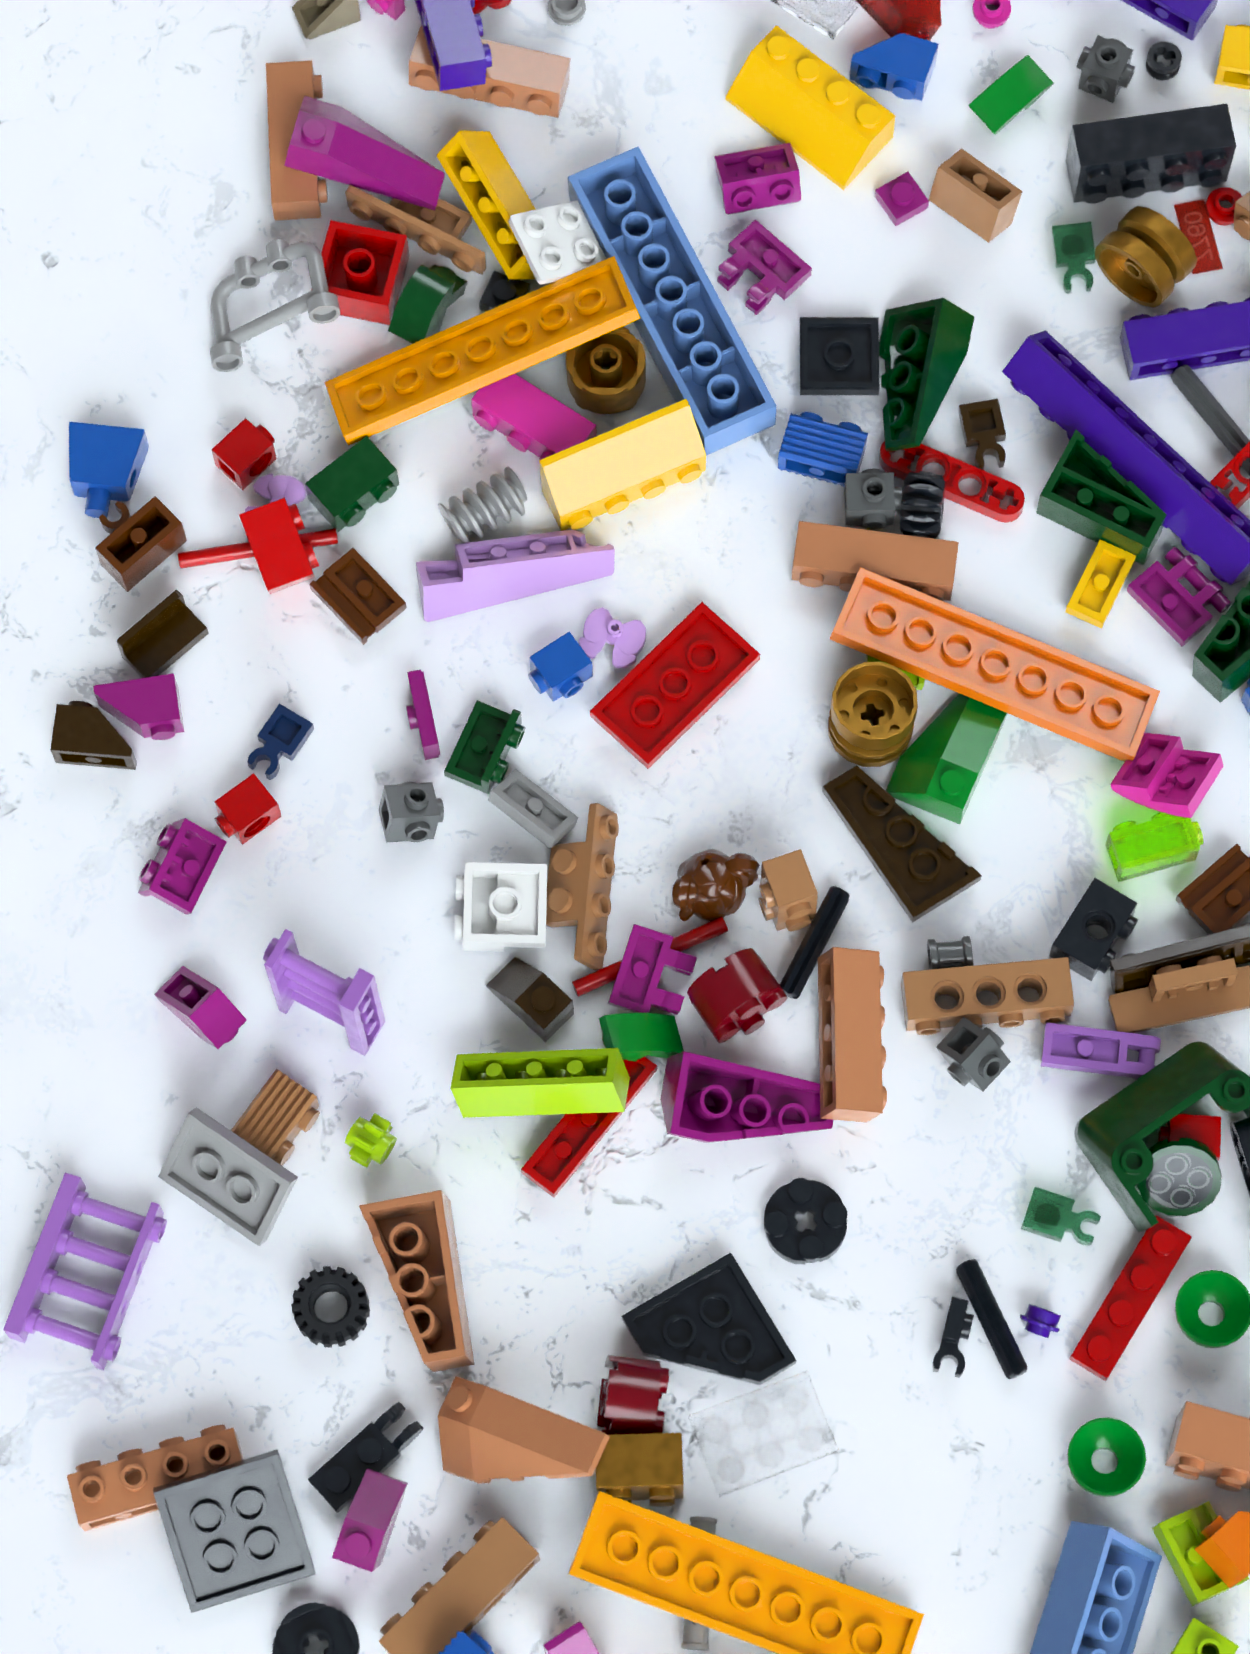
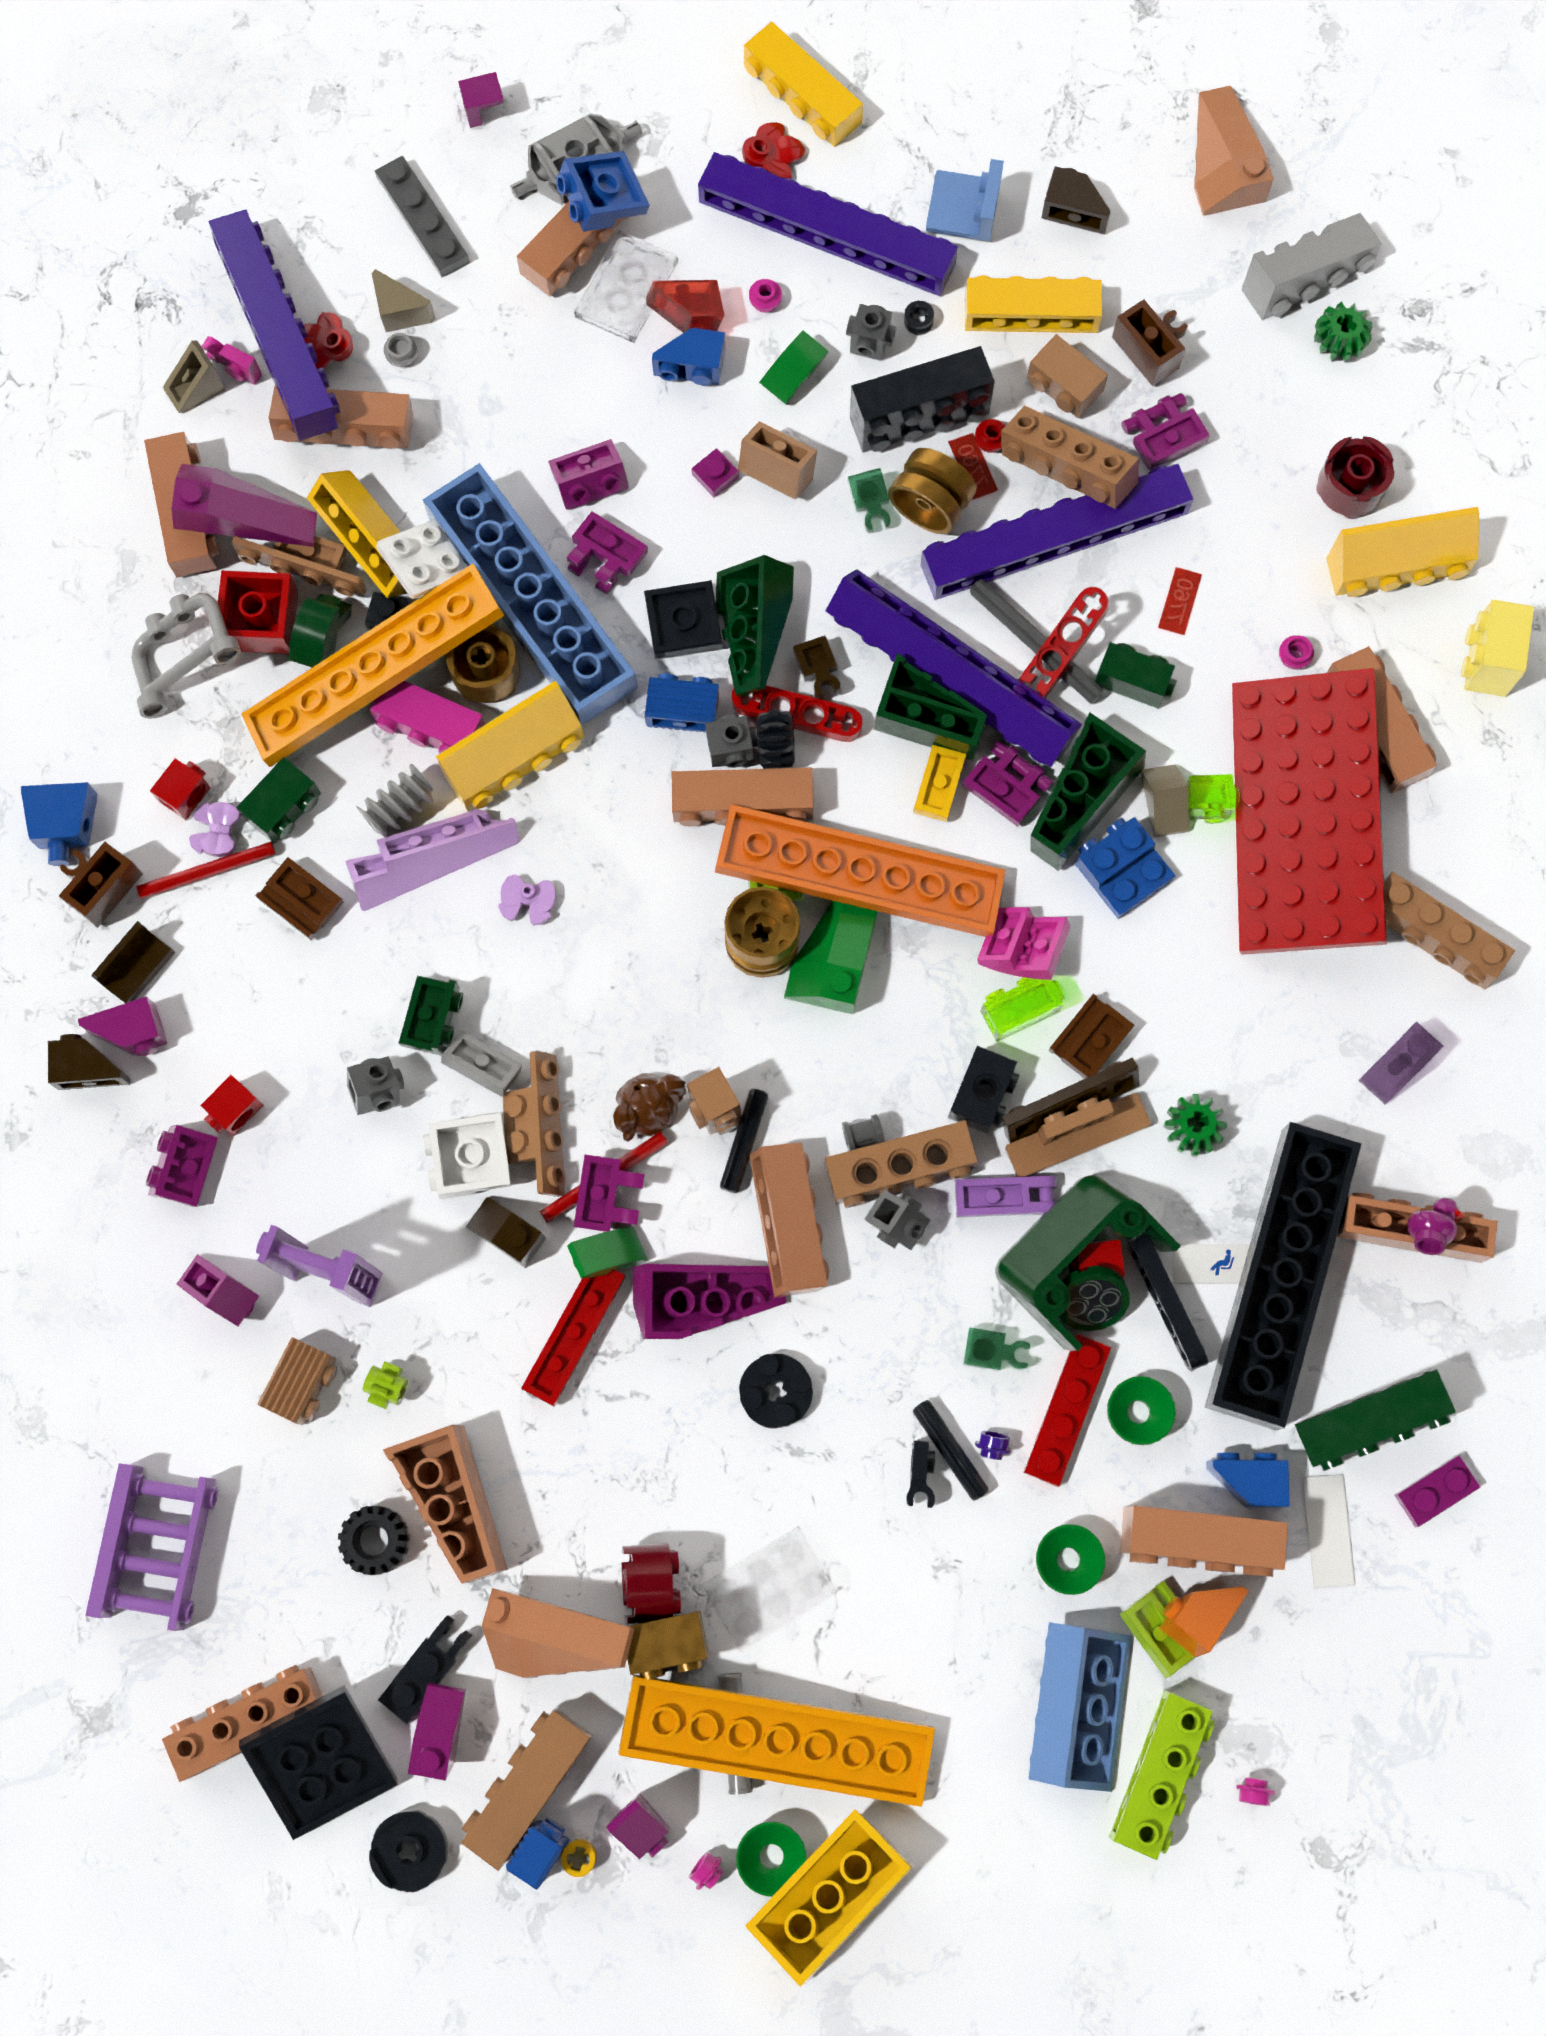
camera: 10 degrees left, 5 degrees up
(227, 1176) = (263, 1440): light grey plate -> none
(277, 545) = (220, 867): red brick -> none
(281, 736) = (252, 1034): dark blue plate -> none
(421, 715) = (371, 996): magenta plate -> none
(540, 1082) = (525, 1311): lime brick -> none
(560, 668) = (485, 934): blue brick -> none
(675, 685) = (587, 933): red plate -> none
(712, 1326) = (709, 1499): black plate -> none
(736, 995) = (683, 1202): dark red brick -> none
(811, 107) = (624, 405): yellow slope -> none
(904, 853) = (812, 1051): dark brown wing -> none

